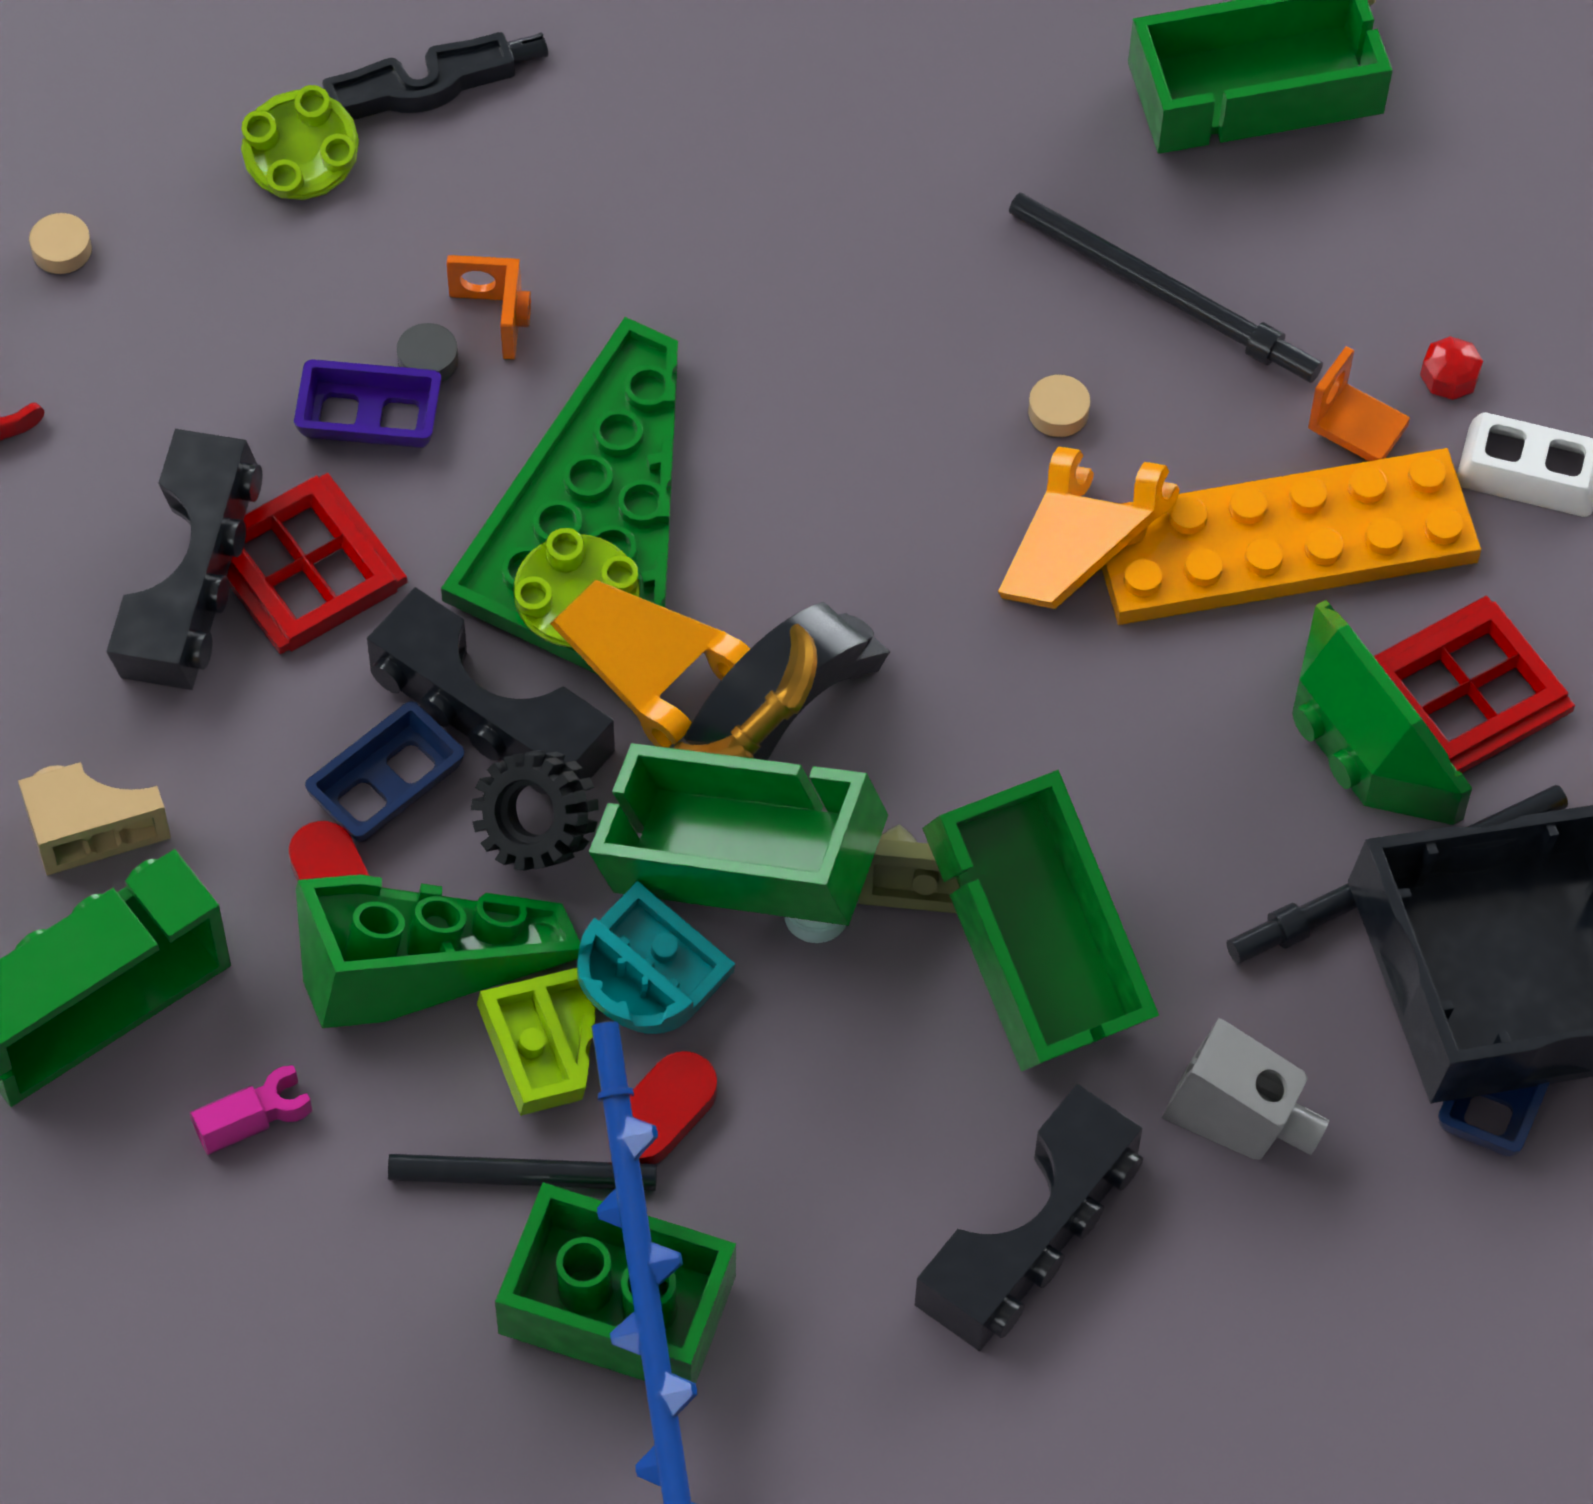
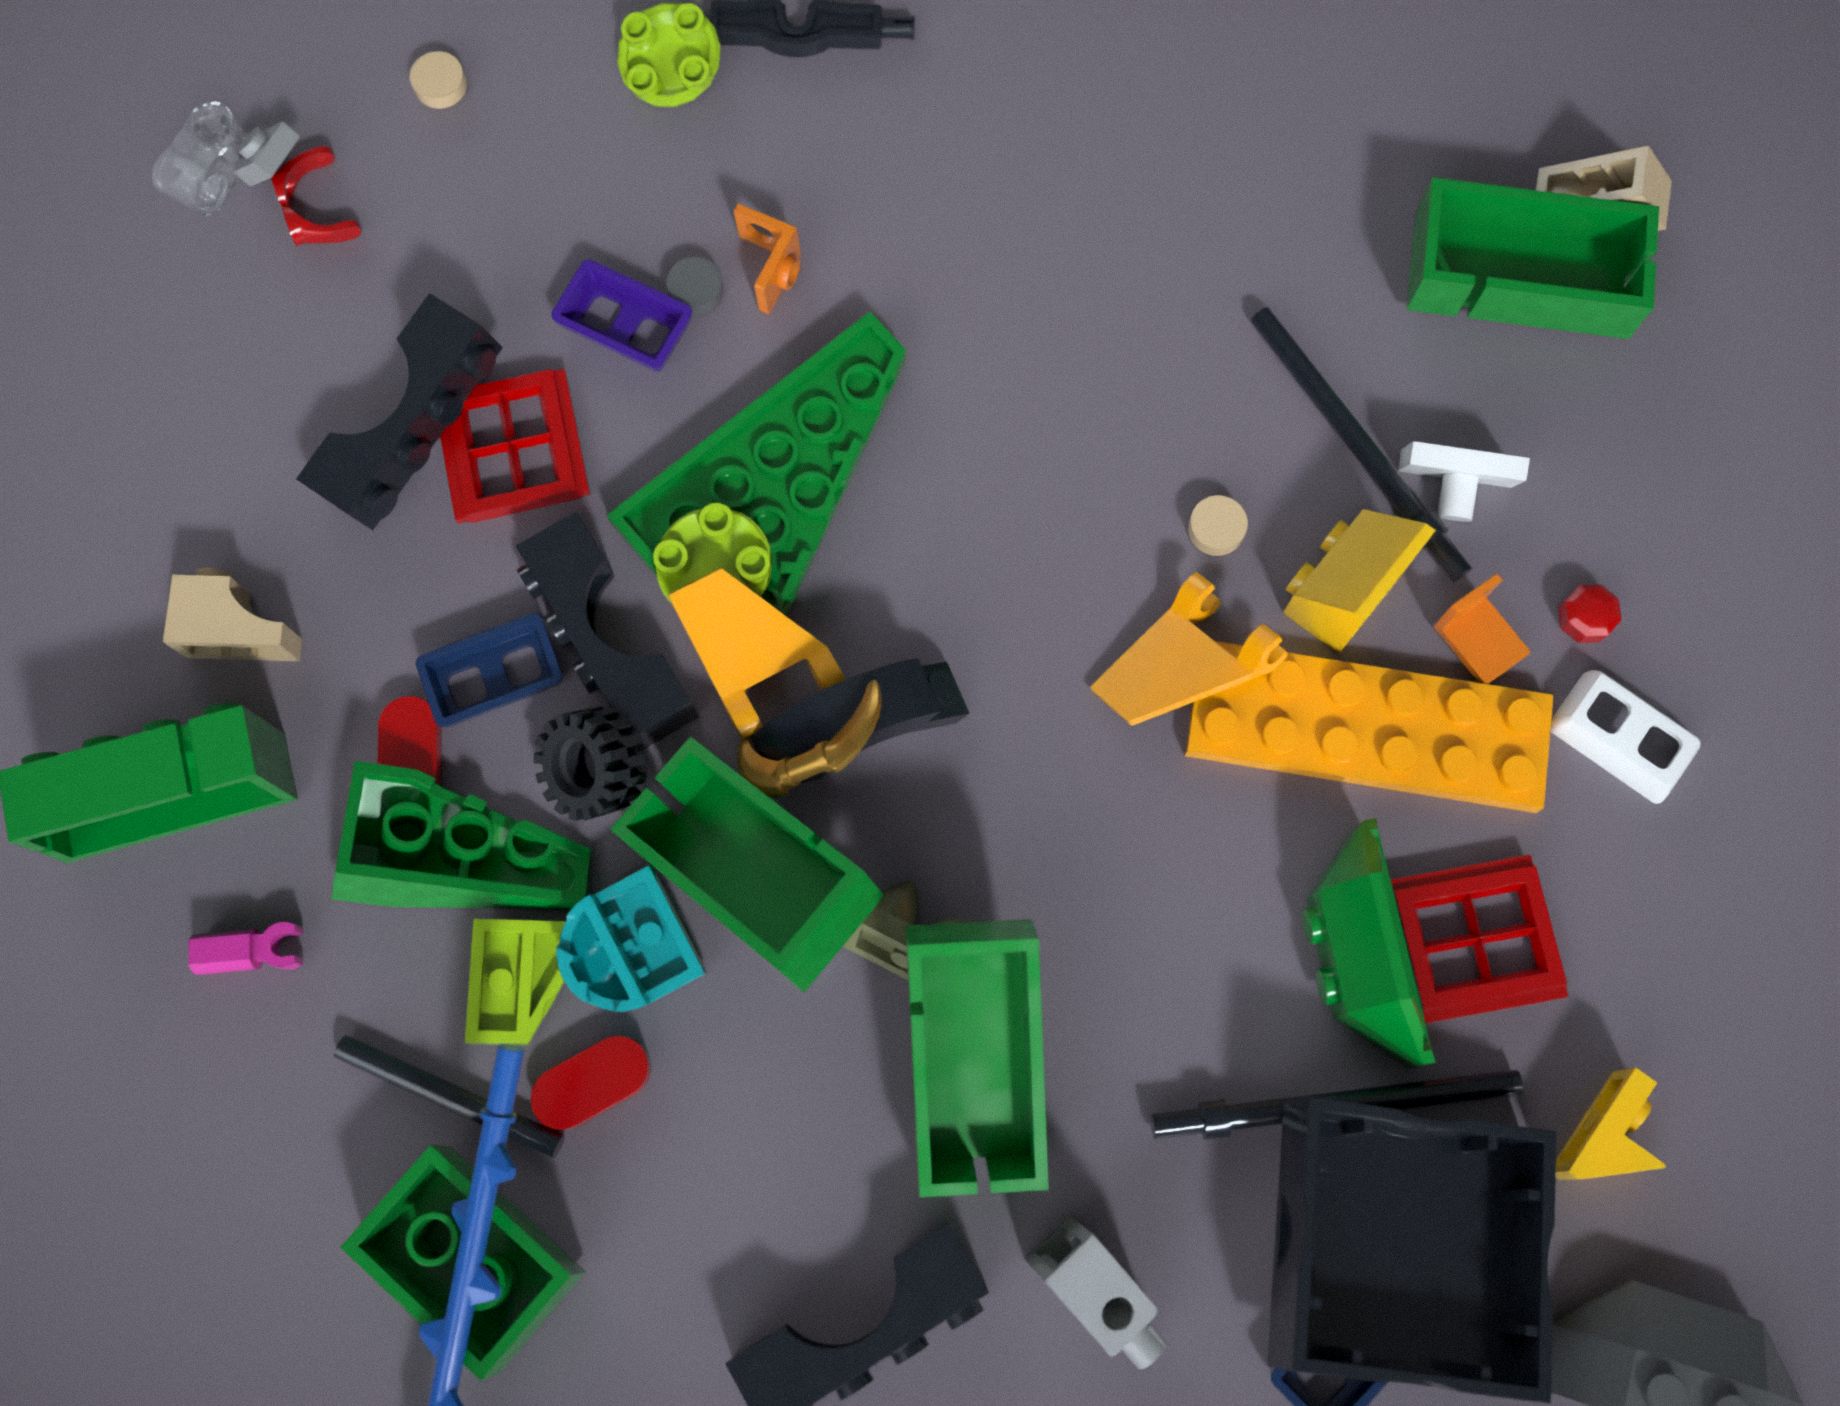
camera: 25 degrees right, 15 degrees up
(1212, 400) = (1354, 575): none -> yellow slope
(1276, 279) = (1461, 473): none -> white tile

